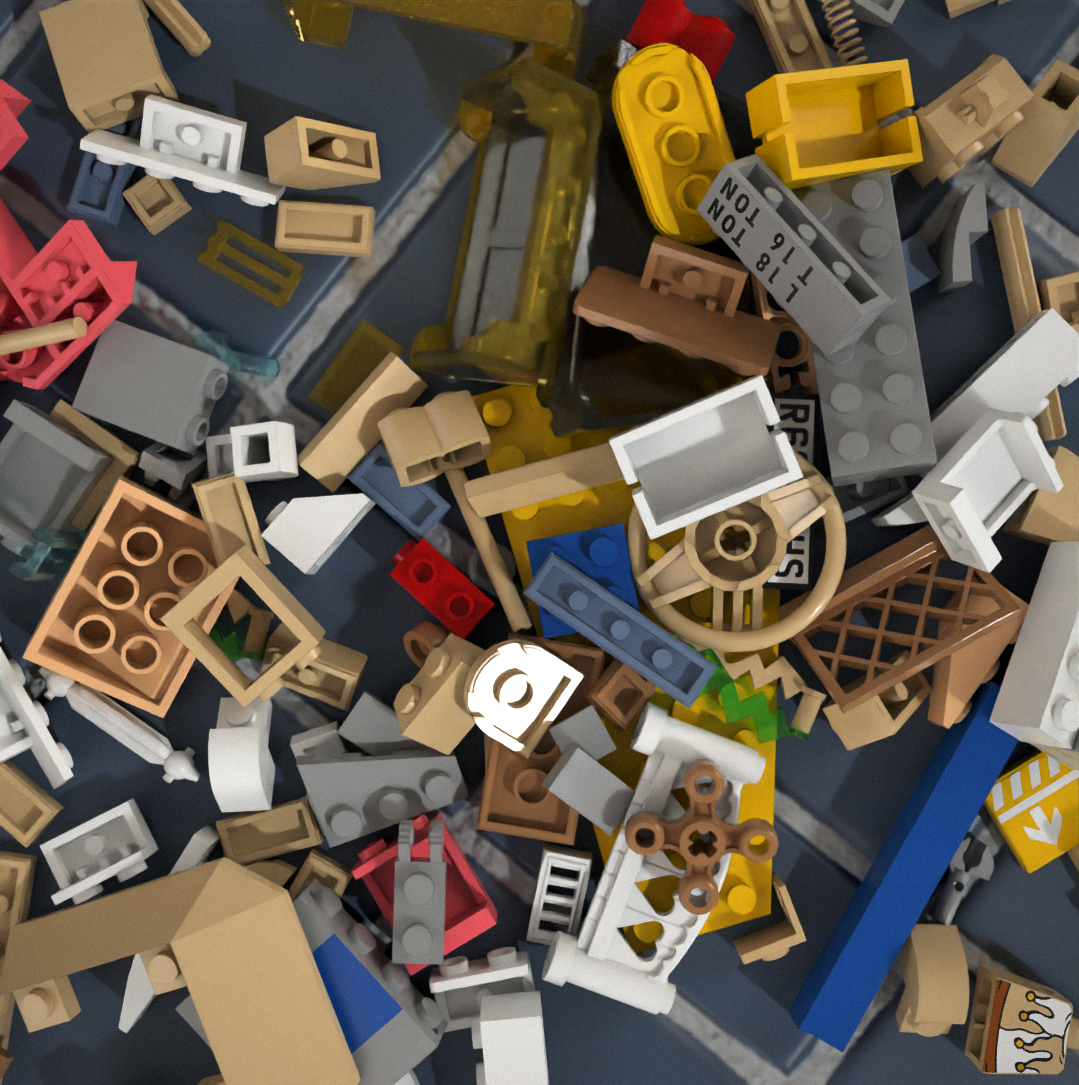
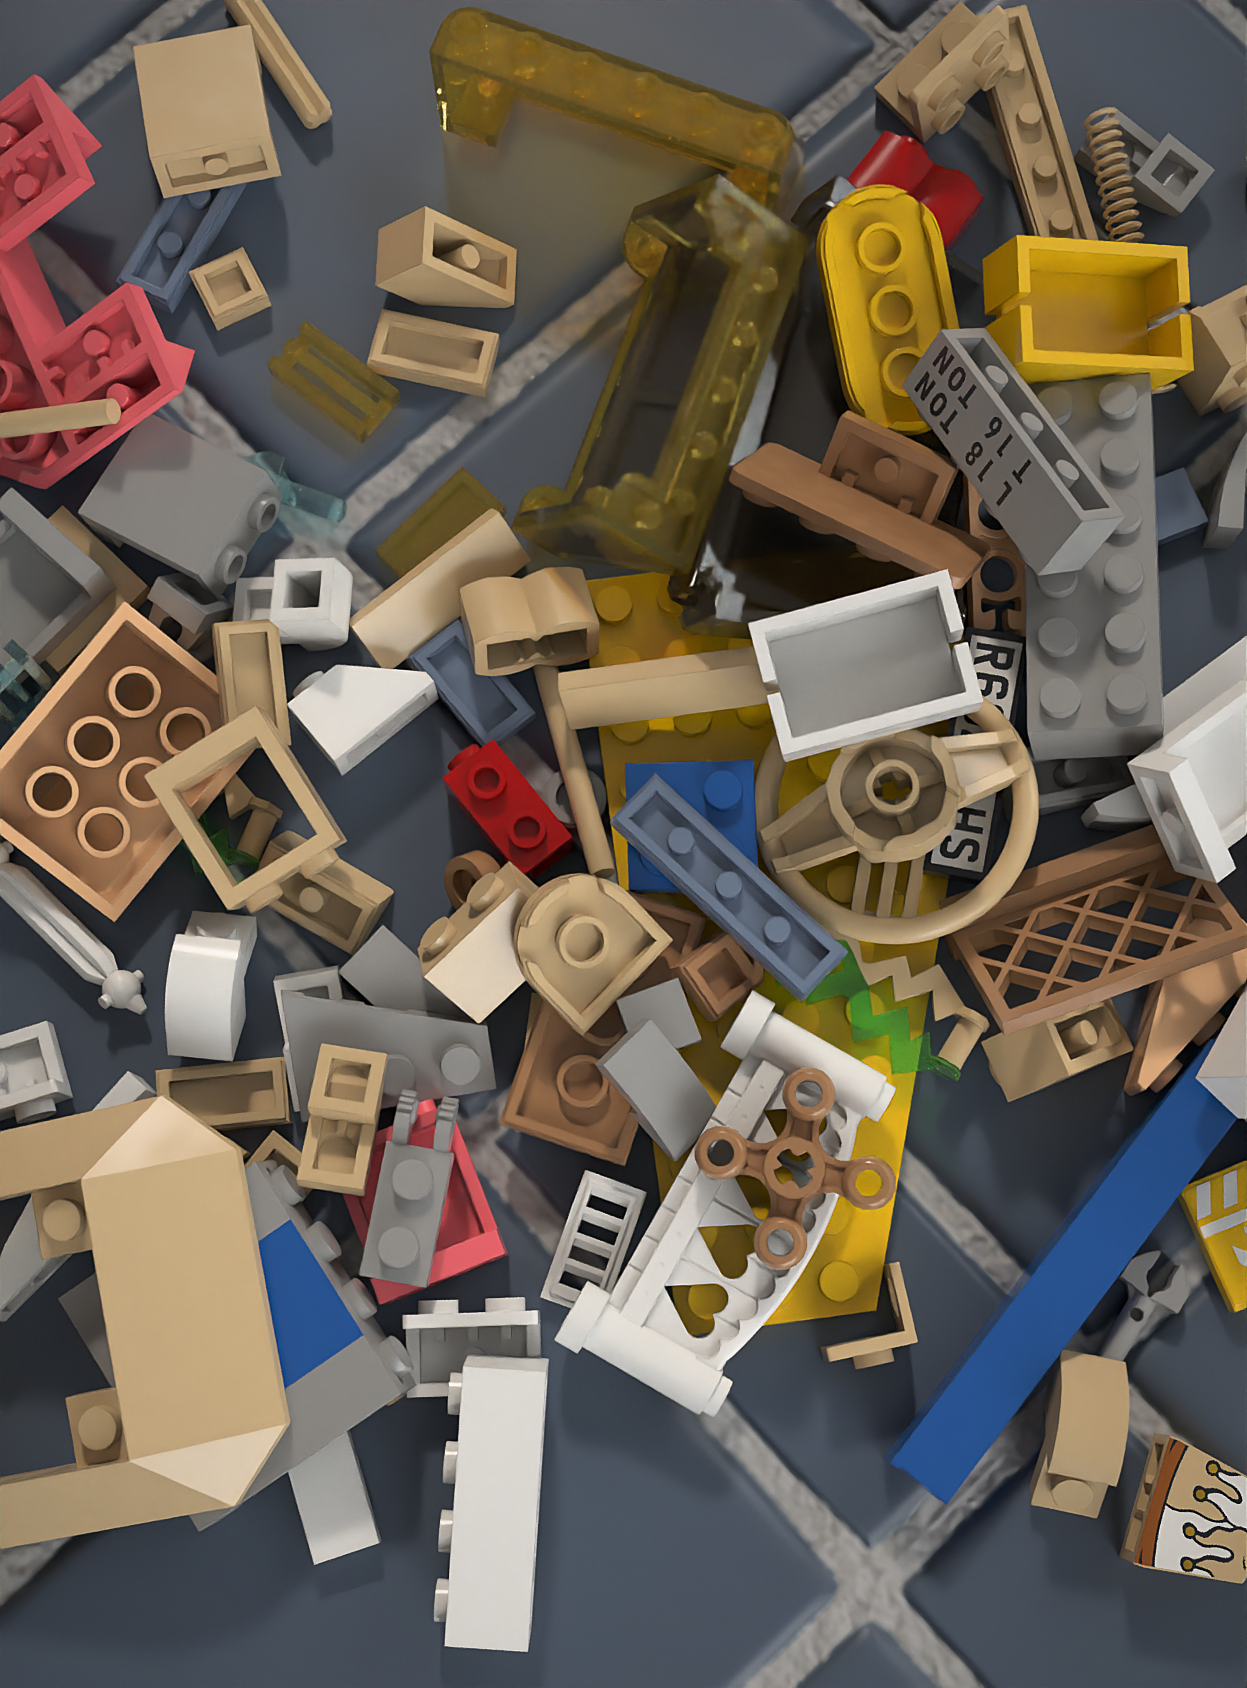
camera: 10 degrees right, 10 degrees down
(187, 145) = (286, 225): white bracket -> none
(359, 848) = (342, 1120): none -> tan slope

